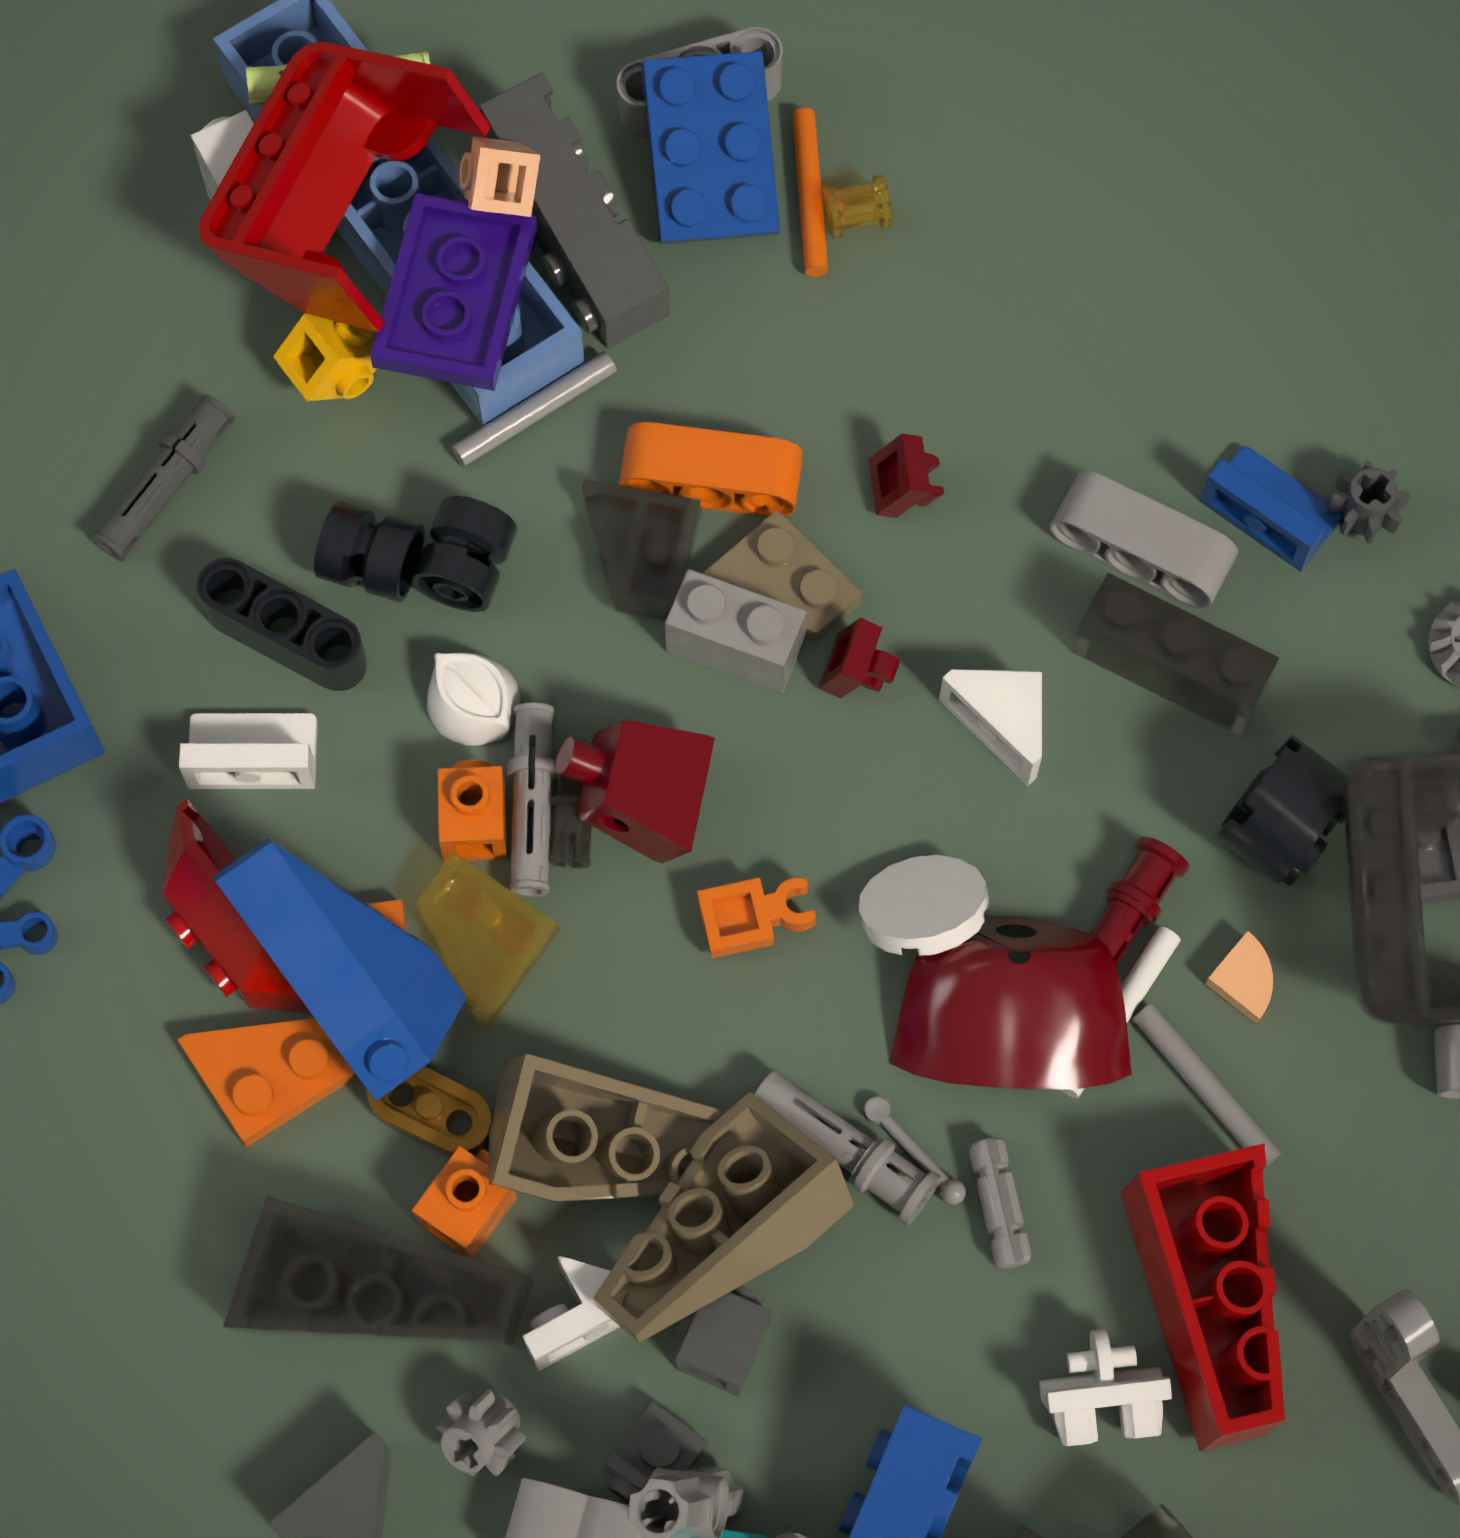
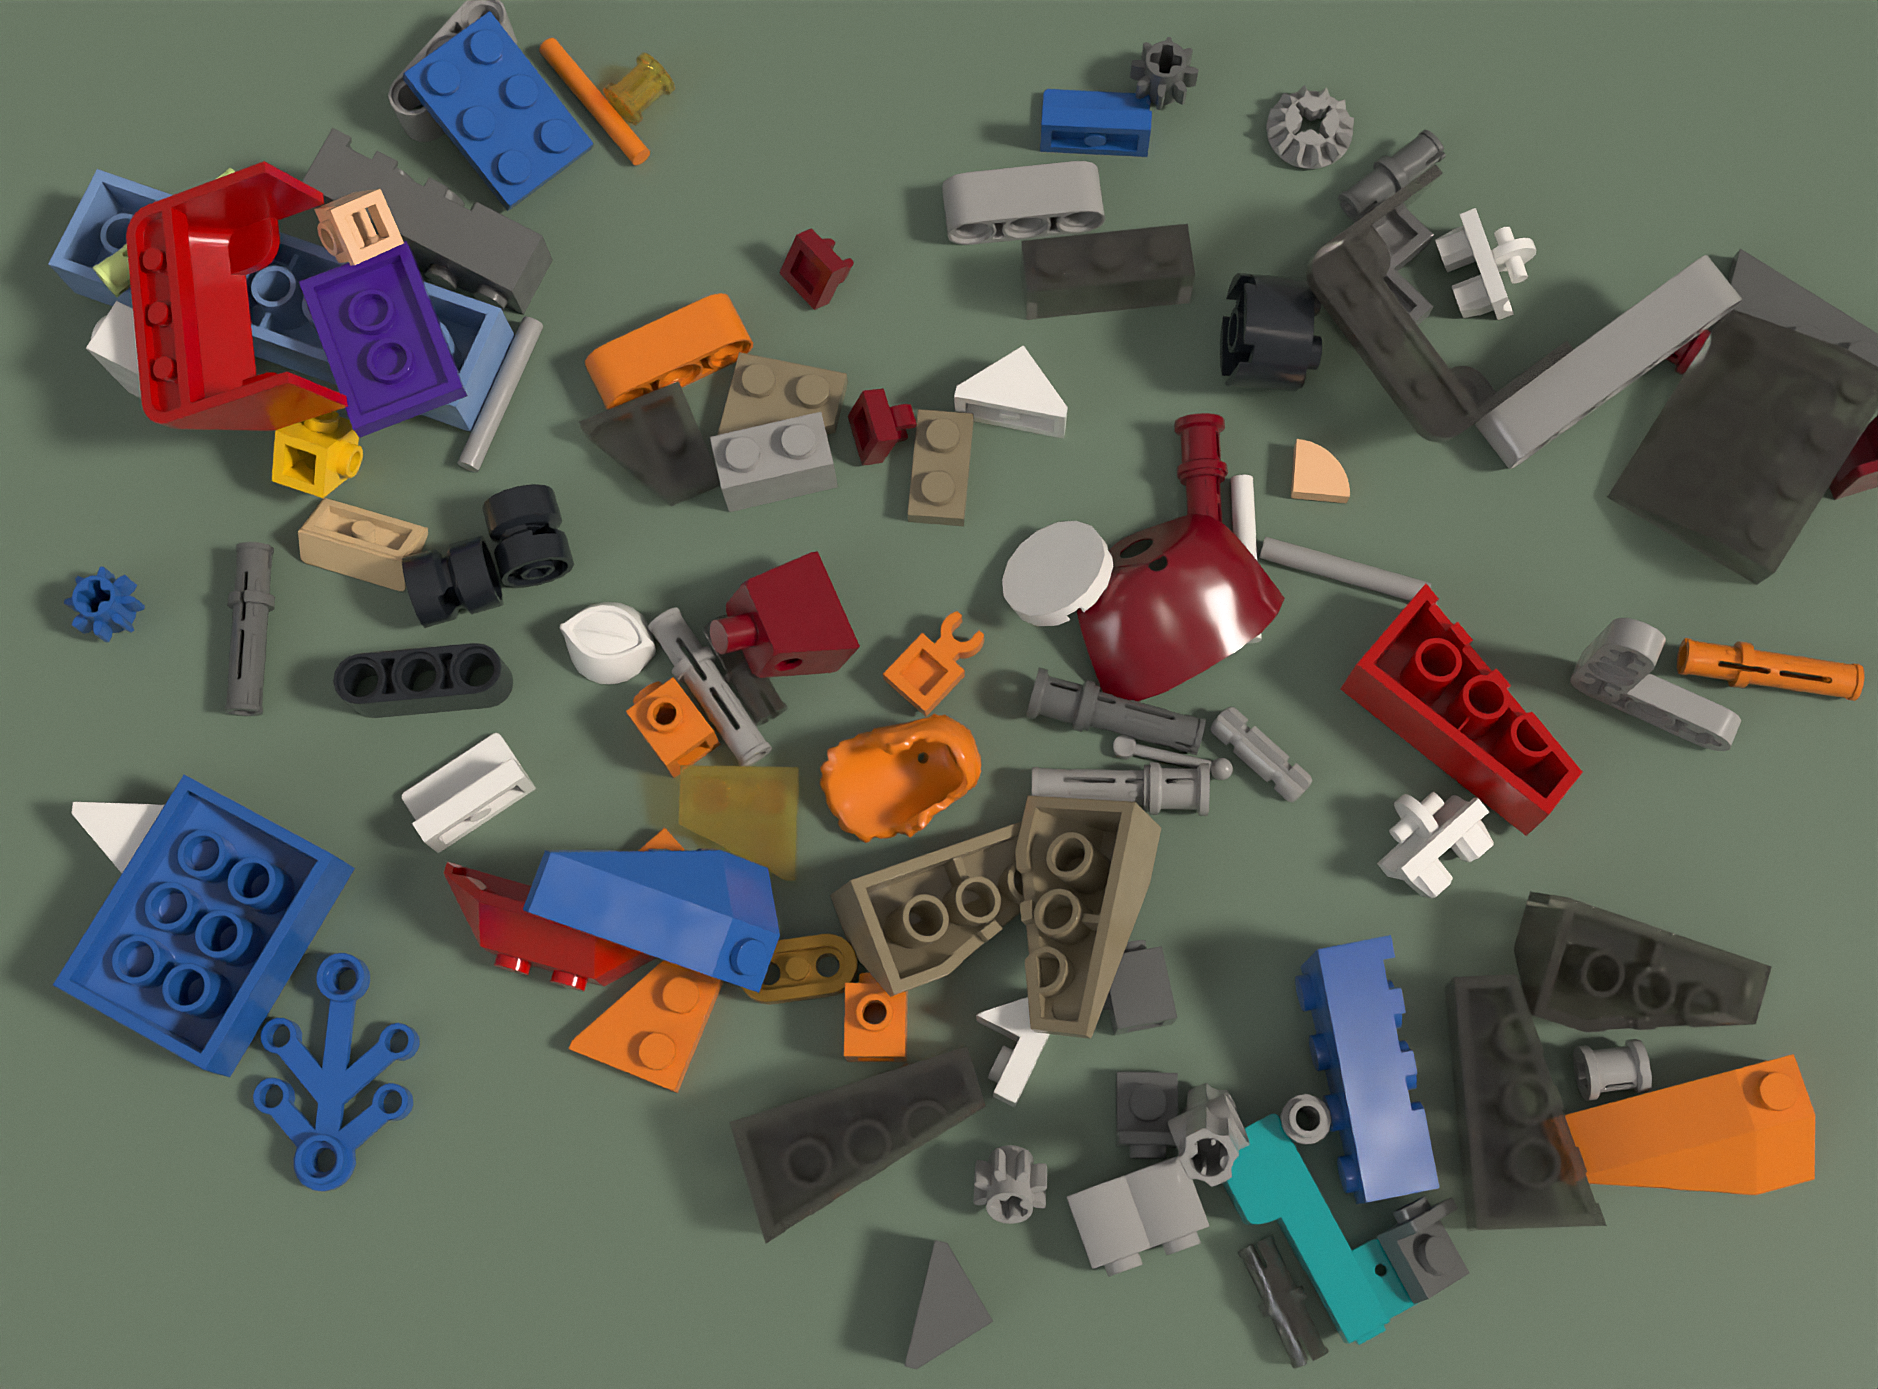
camera: 30 degrees left, 5 degrees up
(54, 373) = (104, 604): none -> blue gear
(314, 462) = (359, 543): none -> tan slope
(624, 997) = (883, 788): none -> orange piece
(867, 1049) = (1088, 707): none -> dark grey pin
(890, 738) = (940, 467): none -> dark tan plate

